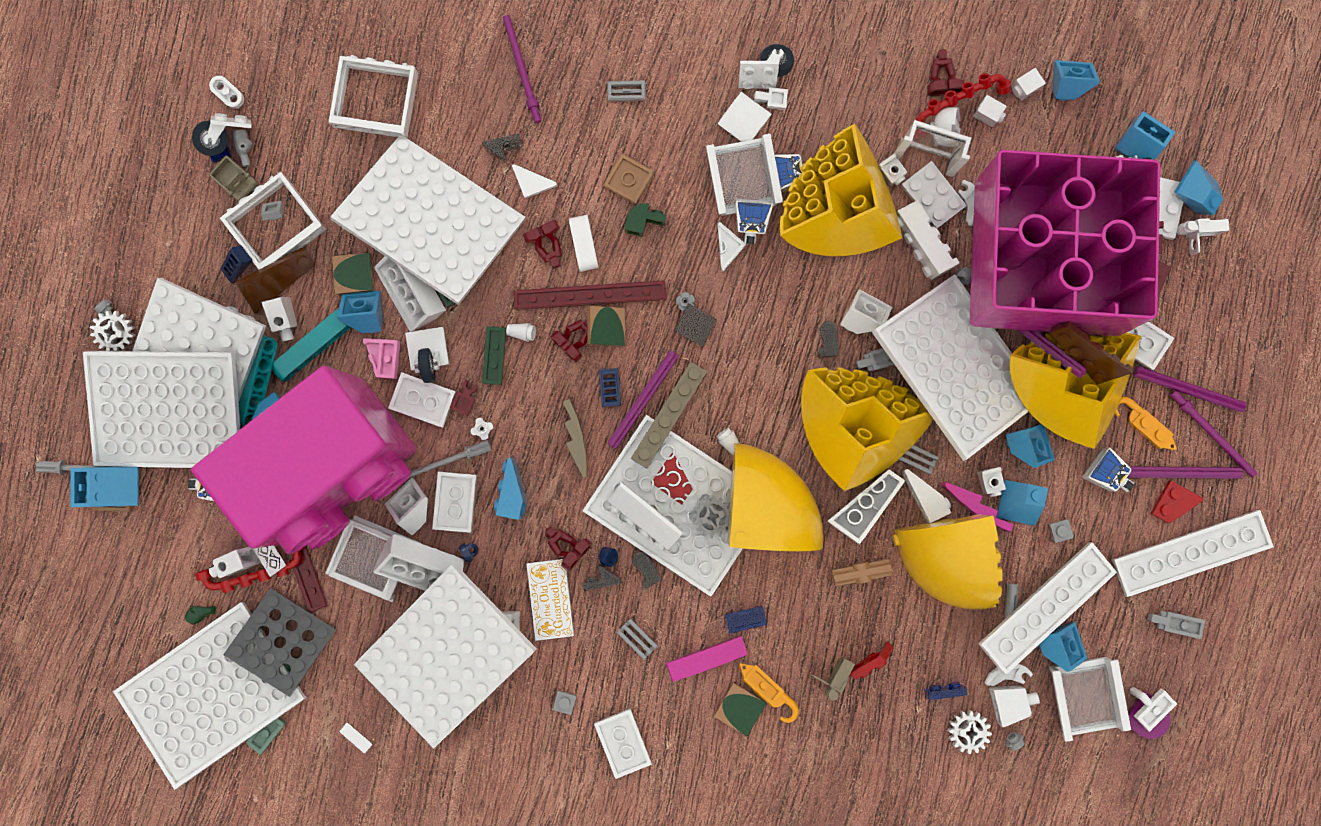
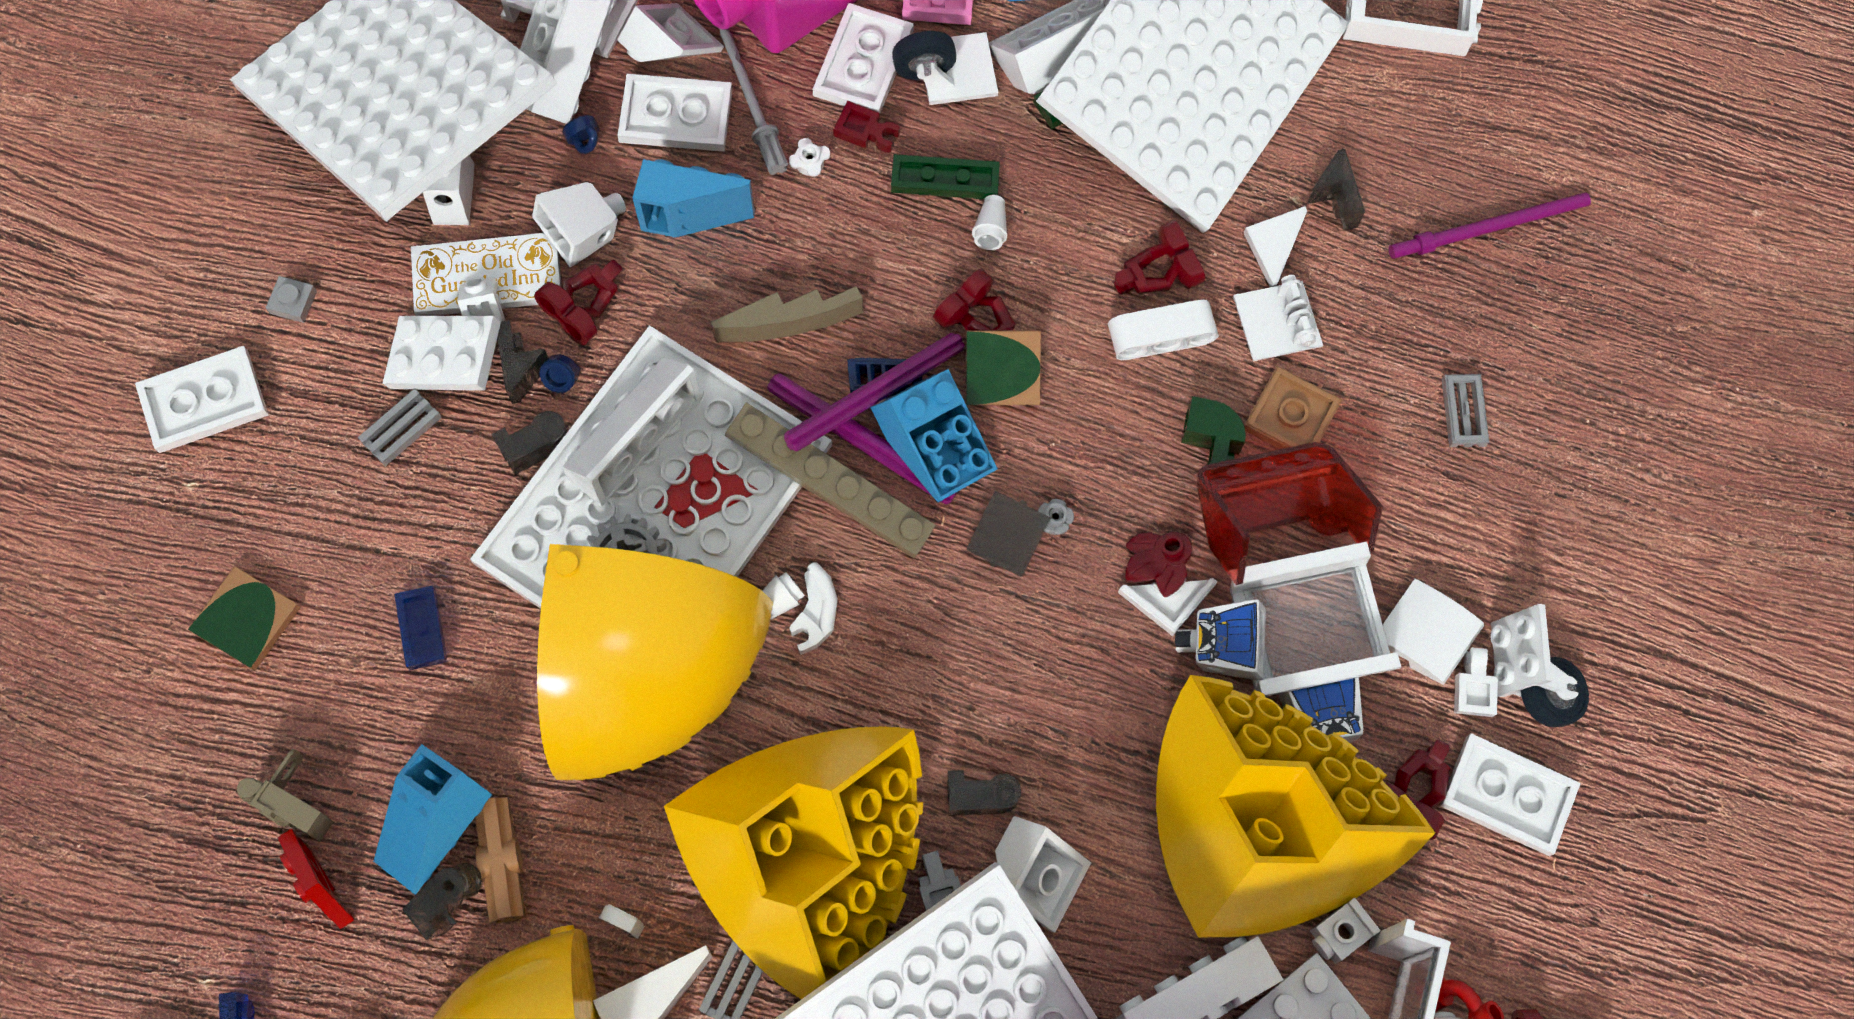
camera: 80 degrees right, 15 degrees down
(521, 551) = (577, 219): none -> white torso
(571, 600) = (480, 298): none -> white bracket
(576, 183) = (1278, 320): none -> white hinge
(589, 295) = (1064, 347): dark red tile -> none
(598, 618) = (442, 352): none -> white plate
(622, 392) = (873, 392): none -> magenta axle
(644, 361) = (935, 435): none -> dark azure slope
(673, 190) = (1279, 490): none -> clear red windscreen
(706, 658) = (348, 551): dark pink slope -> none
(710, 252) = (1154, 561): none -> dark red plate
(733, 419) = (820, 611): none -> white piece
(768, 690) = (274, 671): light orange plate -> none
(810, 122) = (1432, 764): none -> dark red piece
(826, 86) = (1510, 794): none -> white plate
(844, 608) = (426, 817): none -> dark azure slope
(863, 511) = (630, 867): white wedge -> none
(879, 594) = (440, 897): none -> clear smoke leg
(890, 512) = (622, 920): none -> white tile

